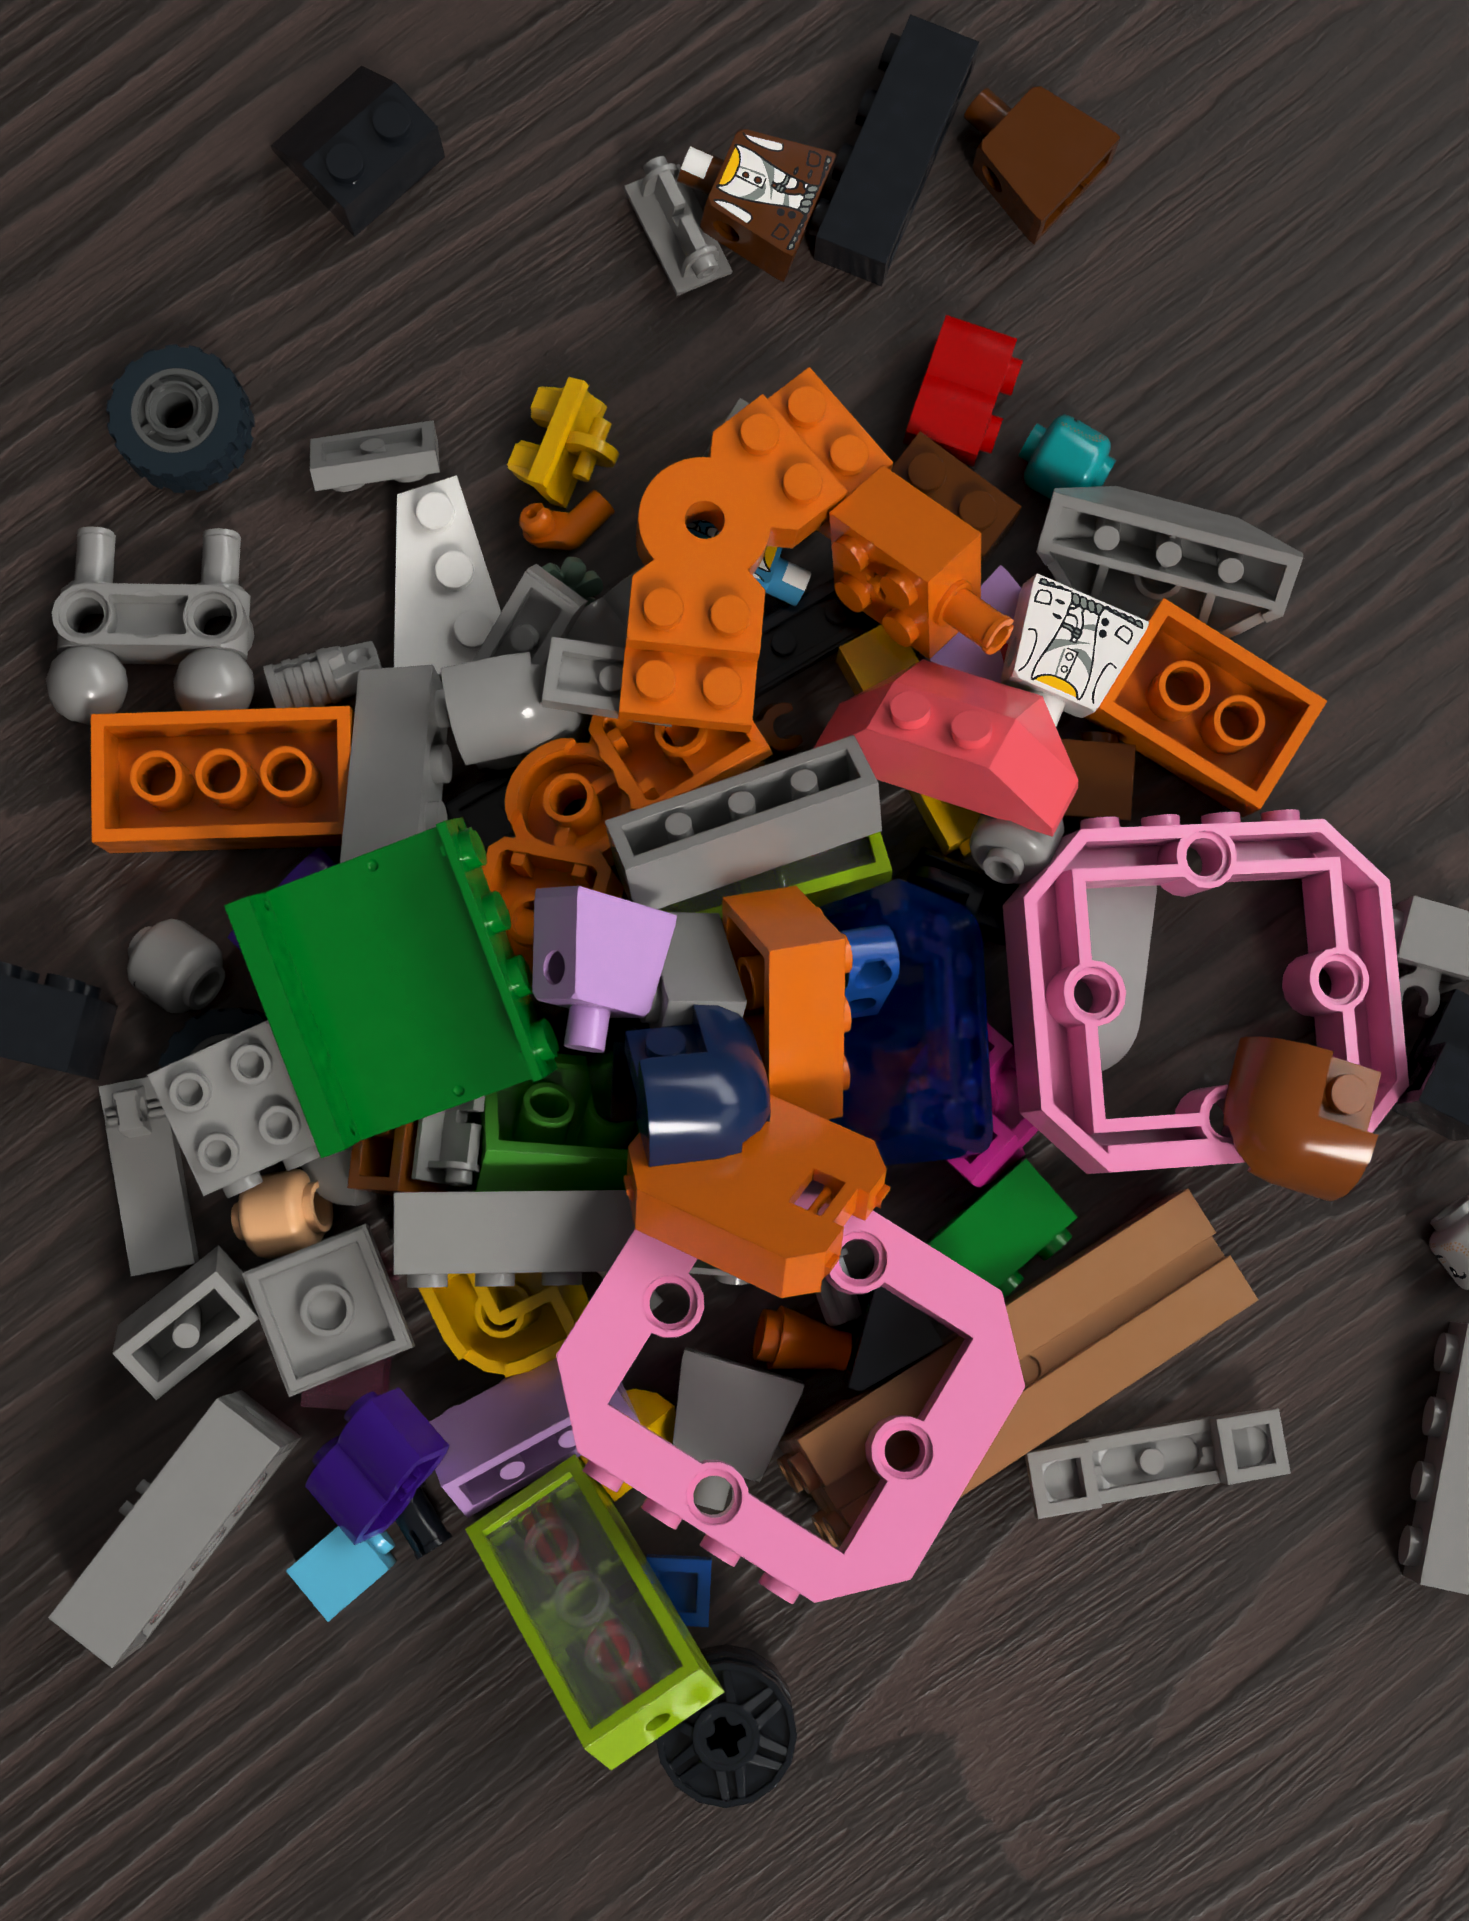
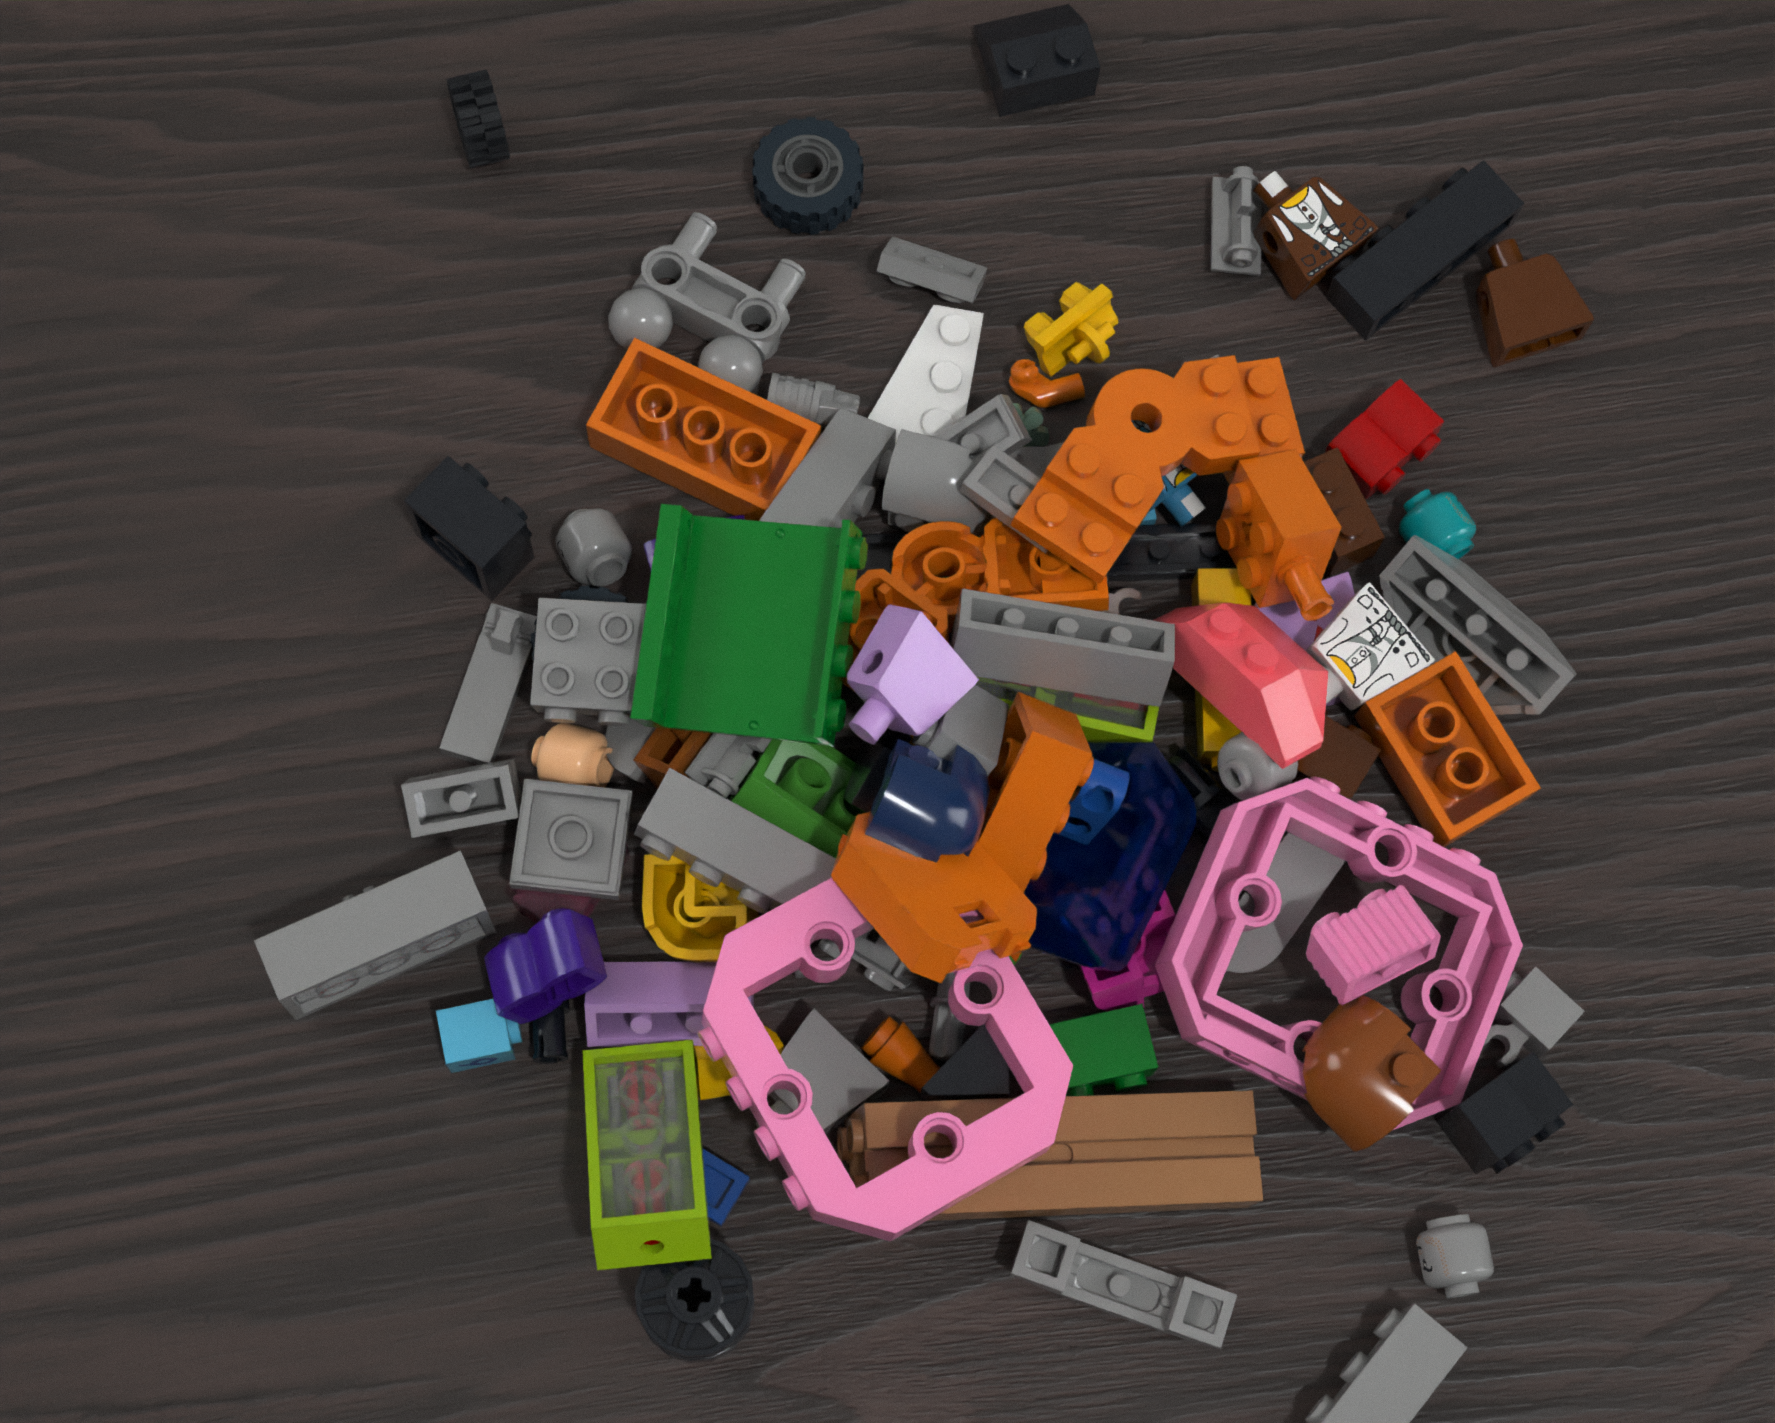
camera: 25 degrees right, 10 degrees down
(1242, 976) = (1371, 943): none -> bright pink brick

